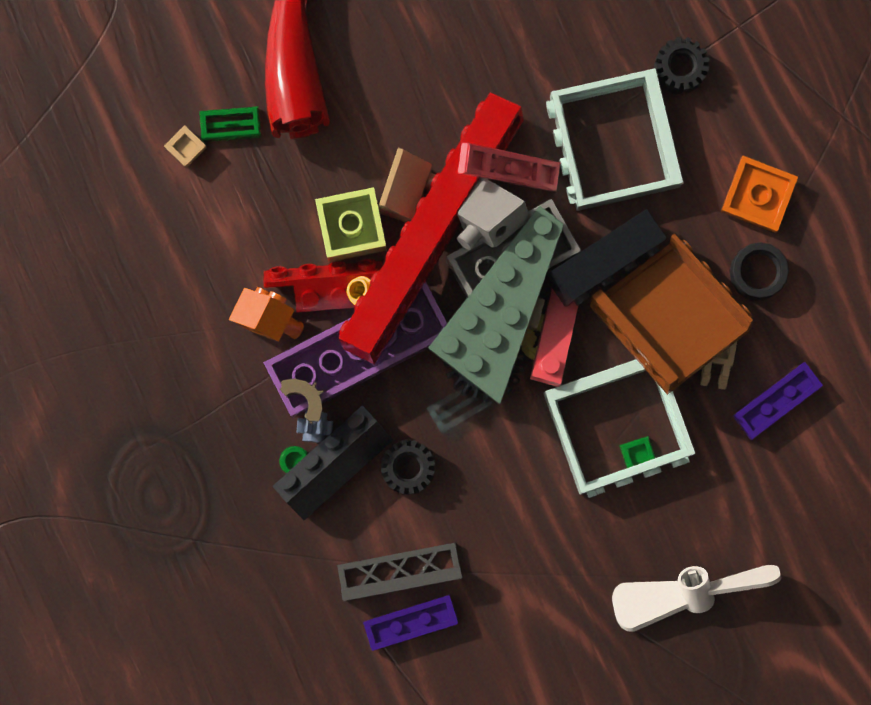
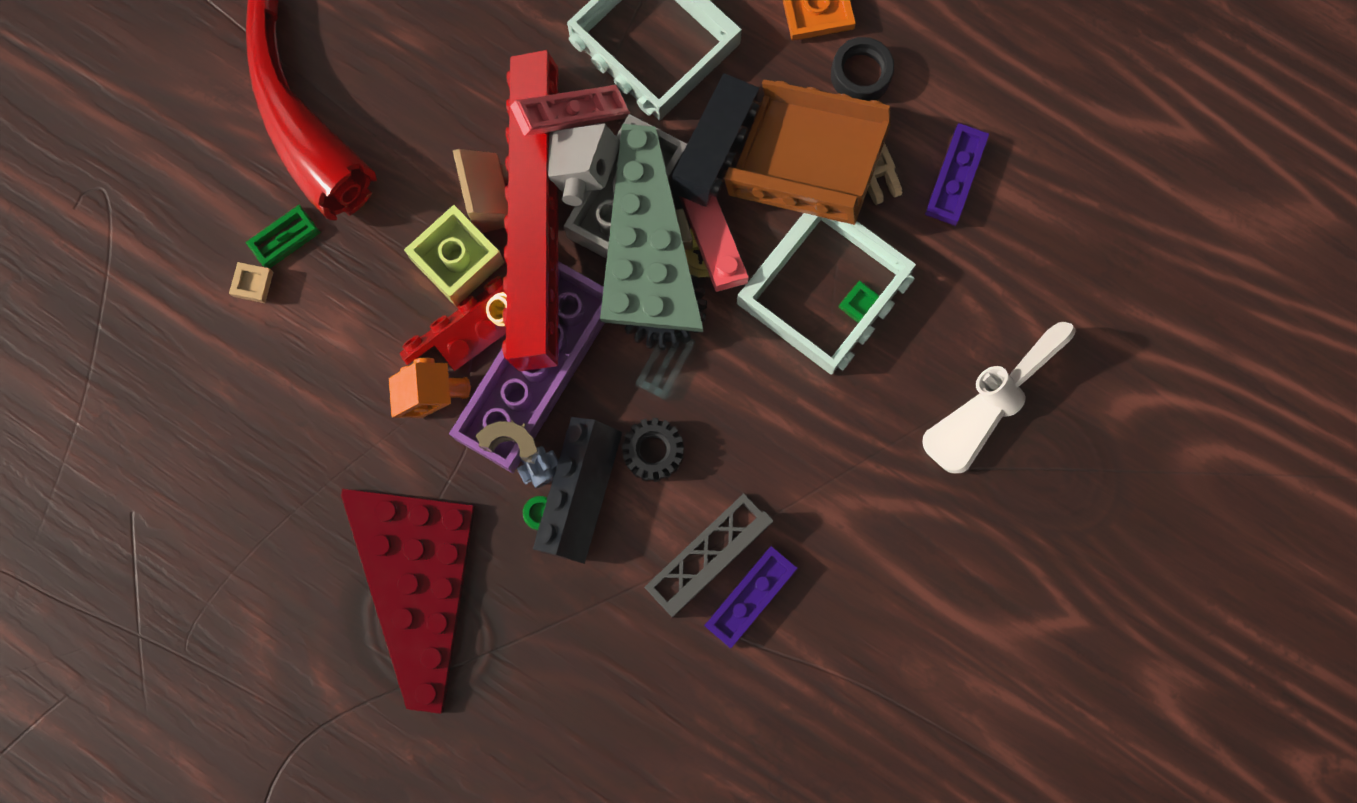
camera: 25 degrees left, 5 degrees down
(174, 449) = (416, 574): none -> dark red wing

